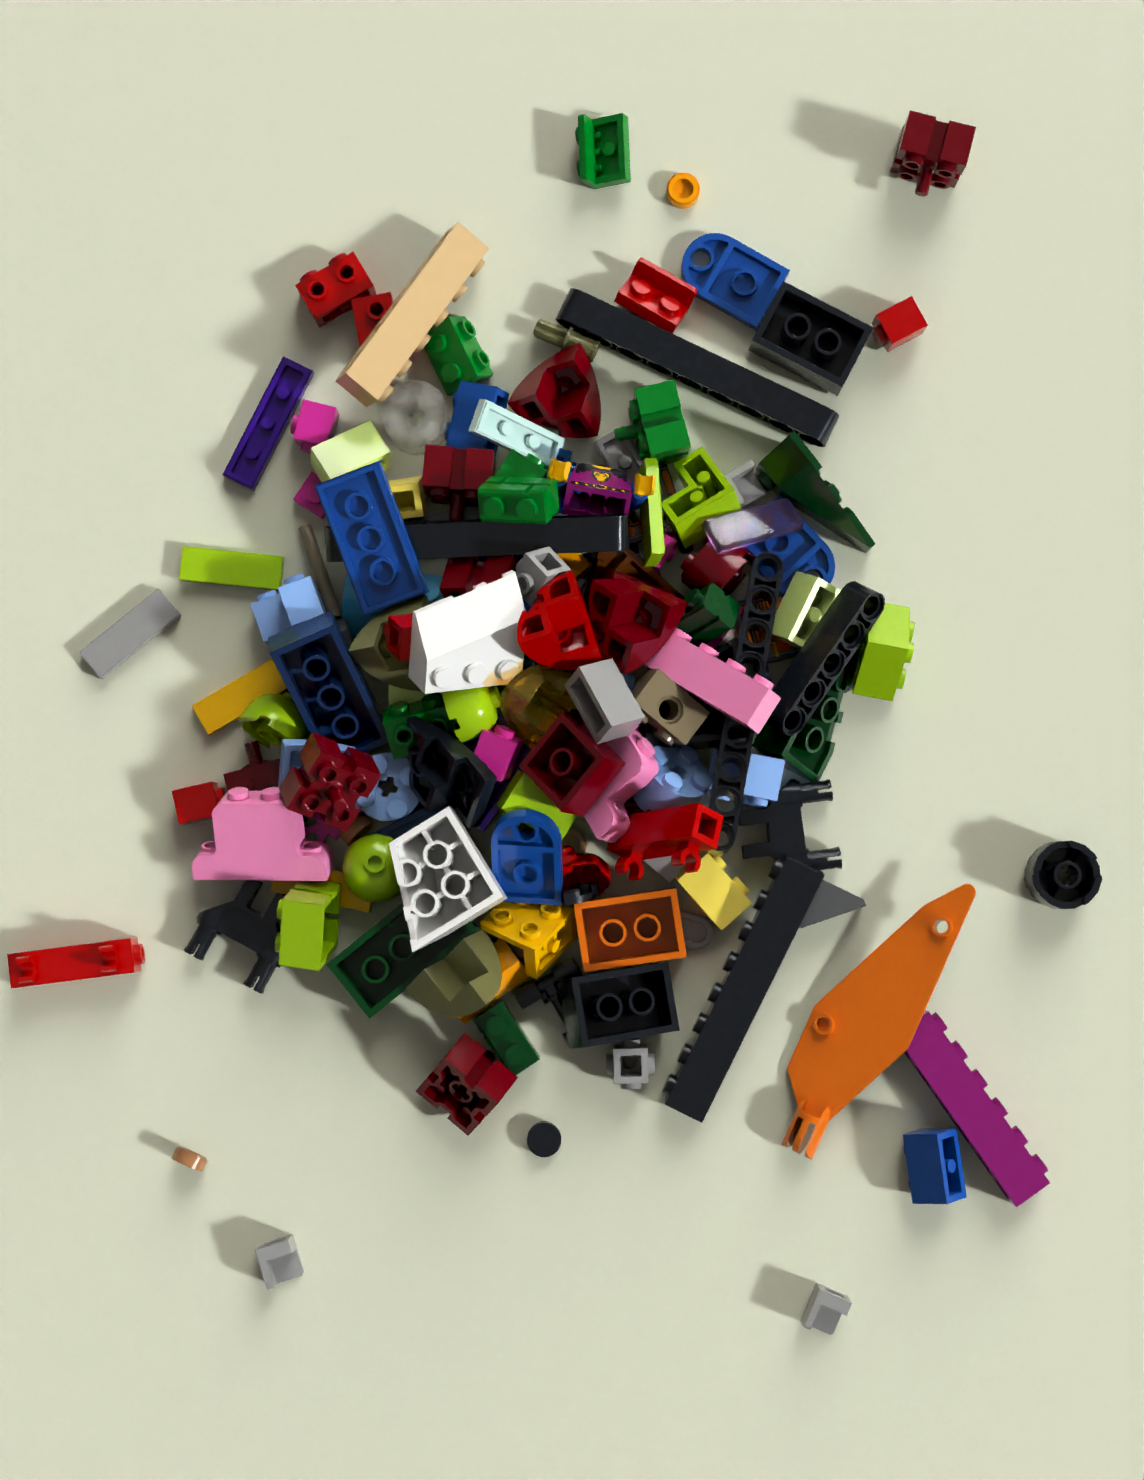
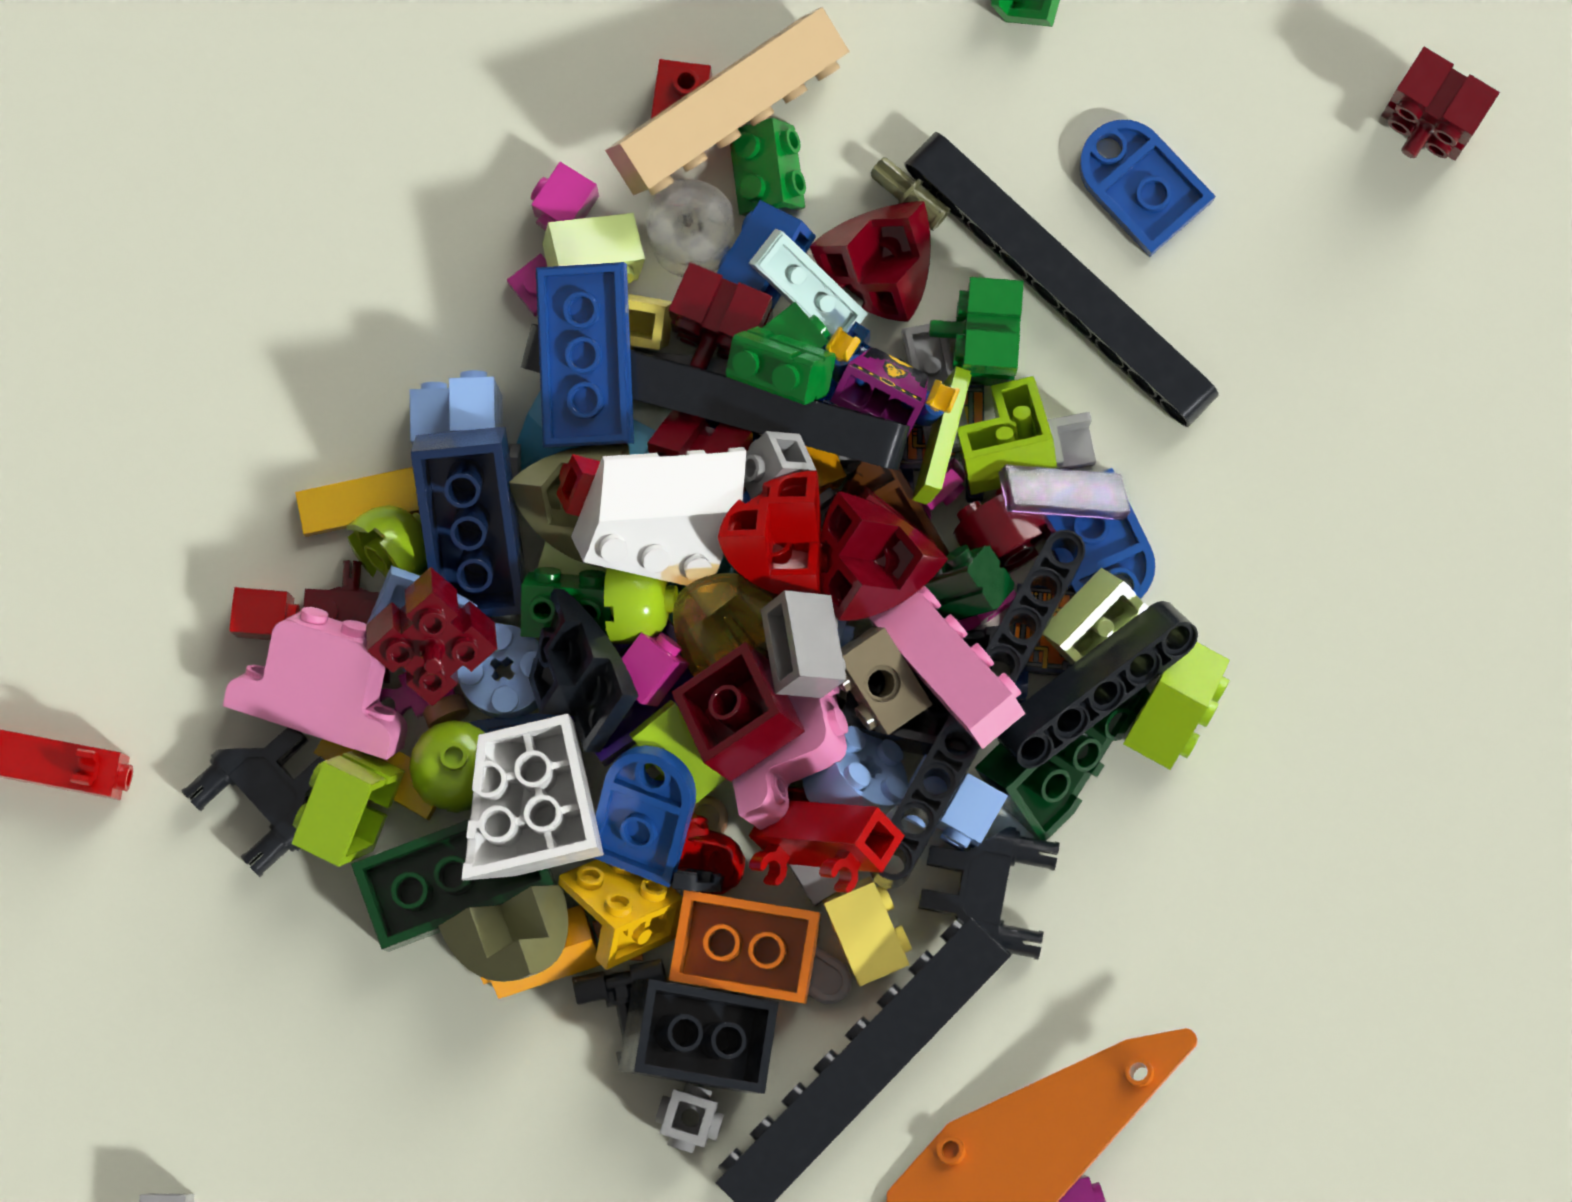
camera: 20 degrees right, 5 degrees down
(130, 633) = (250, 380): light grey tile -> none
(189, 1158) = (98, 1053): medium nougat tile -> none
(231, 568) = (402, 340): lime tile -> none
(268, 423) = (507, 179): dark purple tile -> none
(319, 570) = (509, 377): dark tan bar -> none
(330, 290) = (639, 39): red brick -> none
(467, 1083) = (475, 1072): dark red brick -> none
(506, 1038) = (544, 1034): dark green brick -> none
(544, 1139) = (549, 1179): black tile -> none
(656, 295) = (1038, 174): red bracket -> none
(682, 190) = (1114, 57): light orange tile -> none
(795, 475) = (1138, 449): dark green wedge -> none
(810, 338) = (1212, 287): black brick -> none
(829, 903) = (1006, 996): dark grey slope -> none
(898, 324) = (1328, 305): red brick -> none
(1082, 873) = (1315, 1033): black brick -> none

